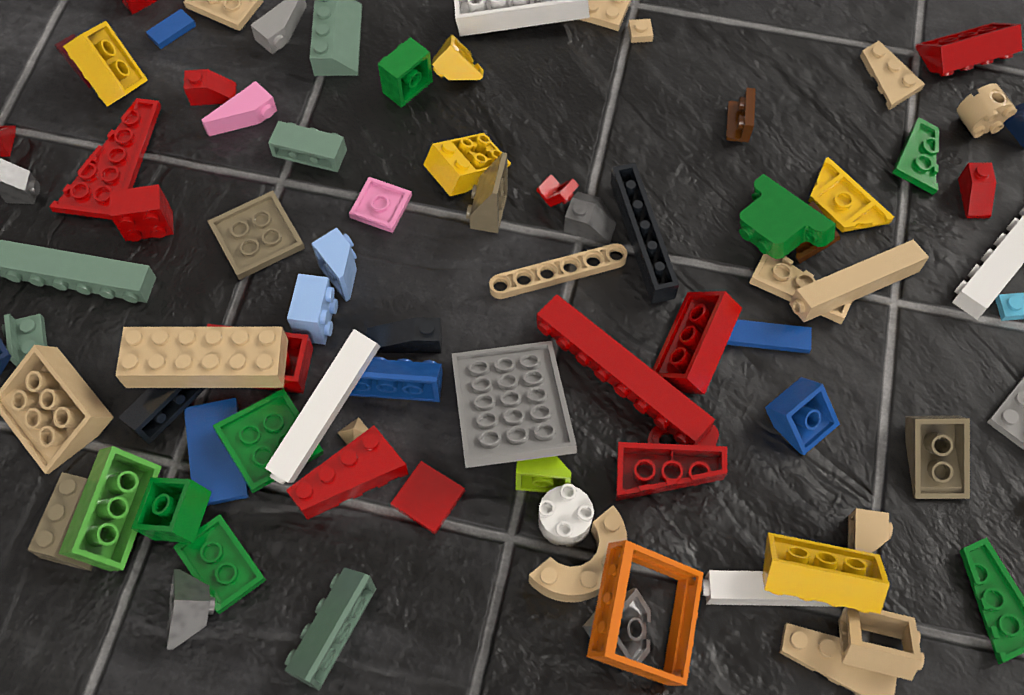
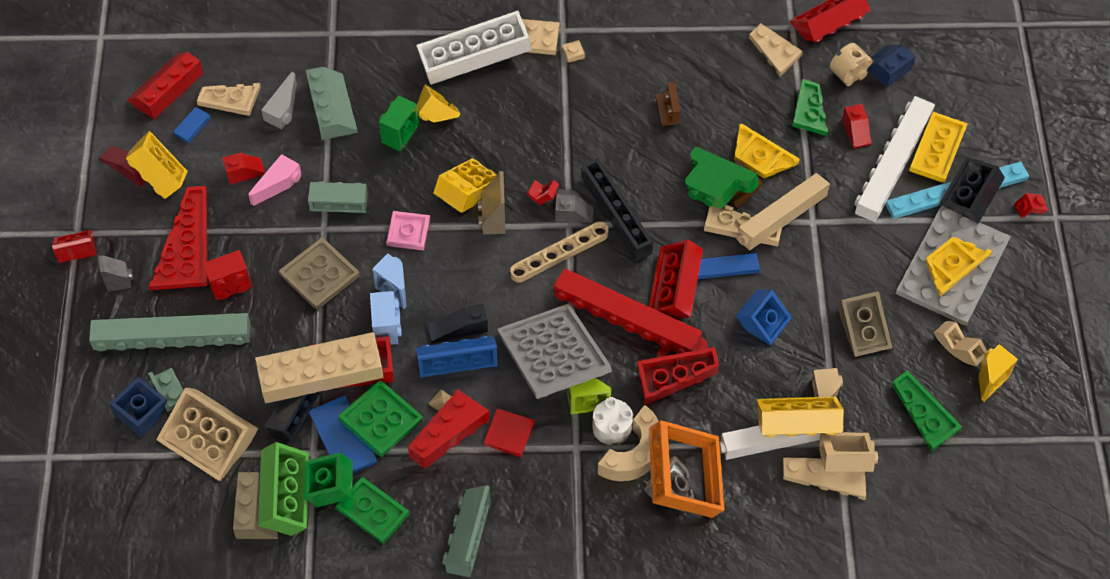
camera: 15 degrees left, 5 degrees down
(188, 609) = (361, 542): flat silver slope -> none
(322, 408) = (419, 382): white brick -> none

